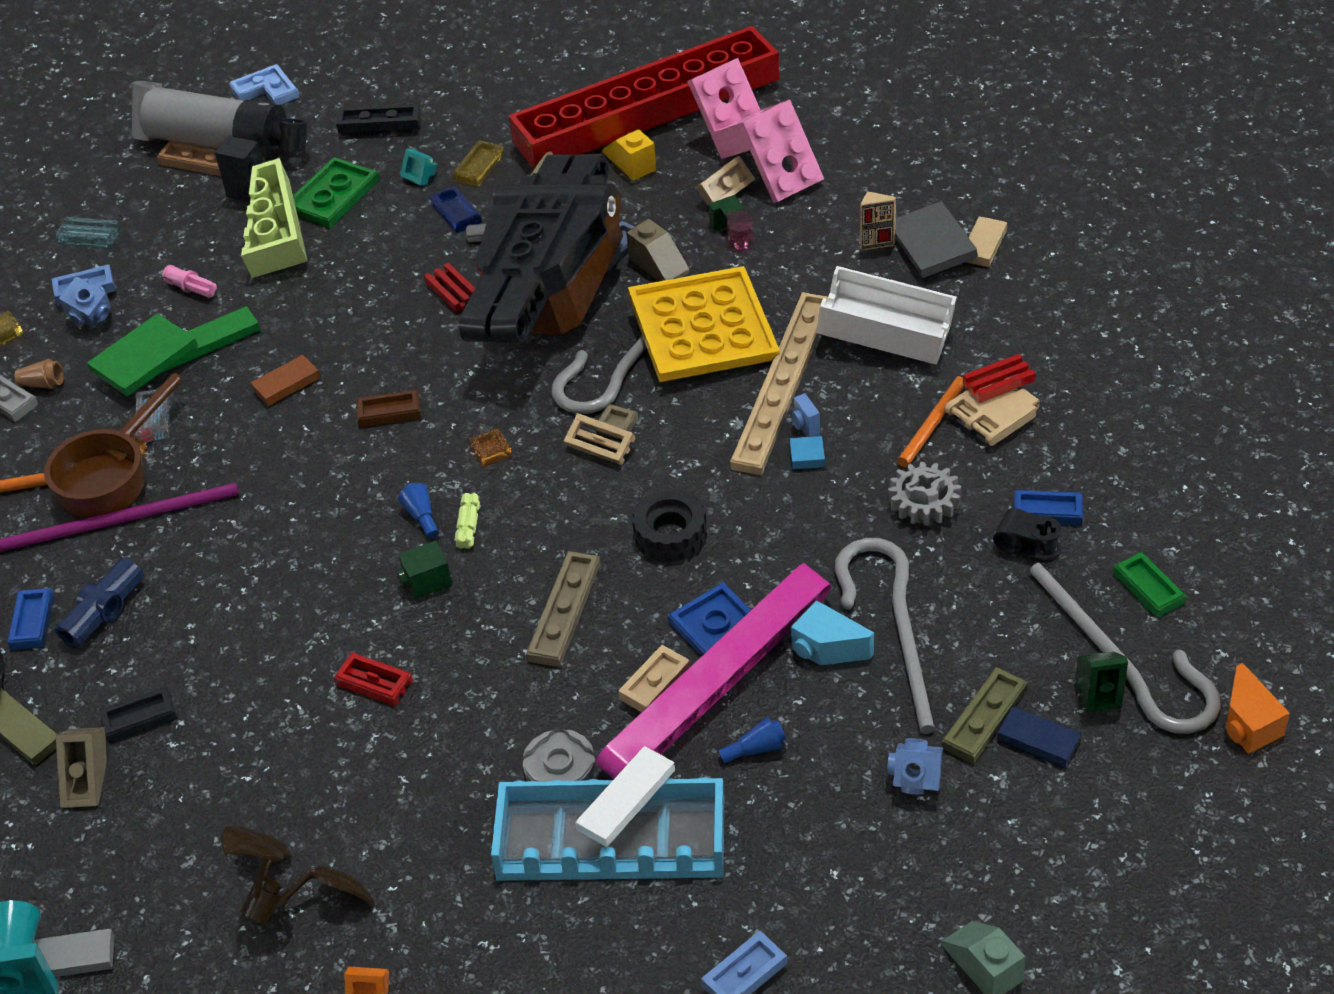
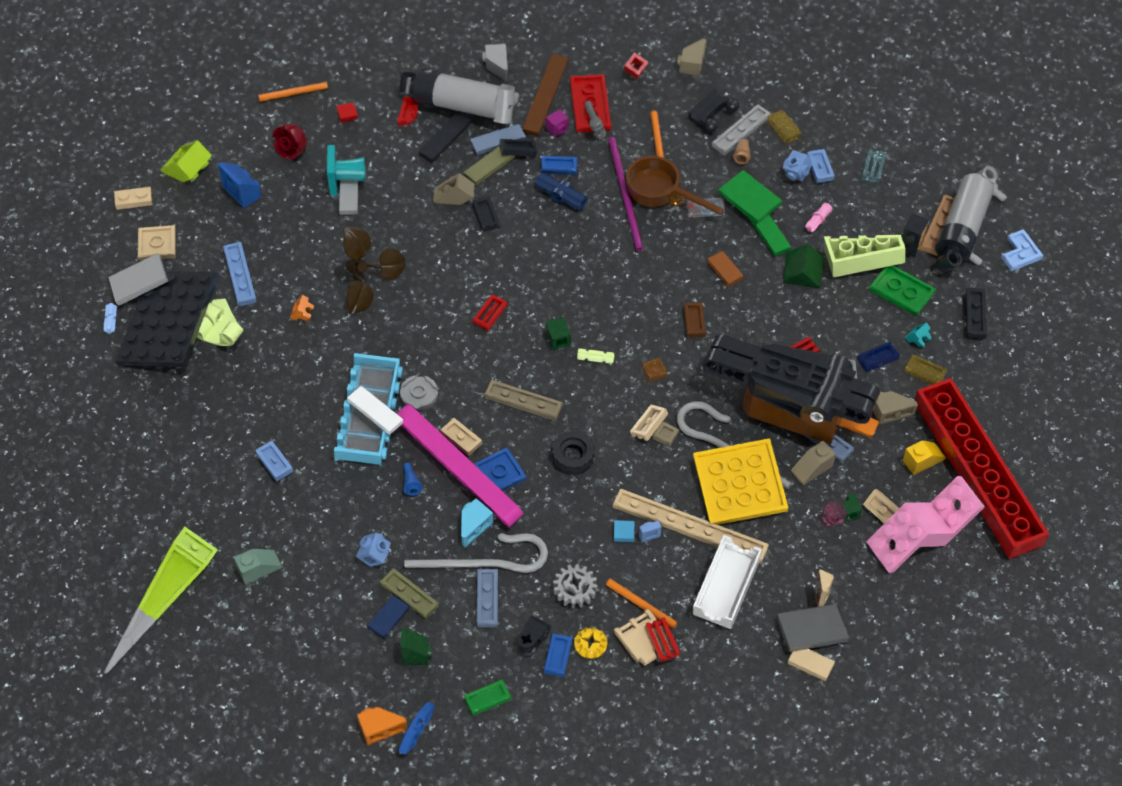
camera: 90 degrees right, 10 degrees up
(286, 294) = (803, 267): none -> dark green slope
(416, 502) = (610, 331): blue cone -> none
(967, 607) = (487, 597): none -> sand blue tile
(1004, 477) = (597, 649): none -> yellow gear
(1141, 690) = (408, 675): light grey piece -> none
(1226, 651) = (417, 726): none -> blue tile

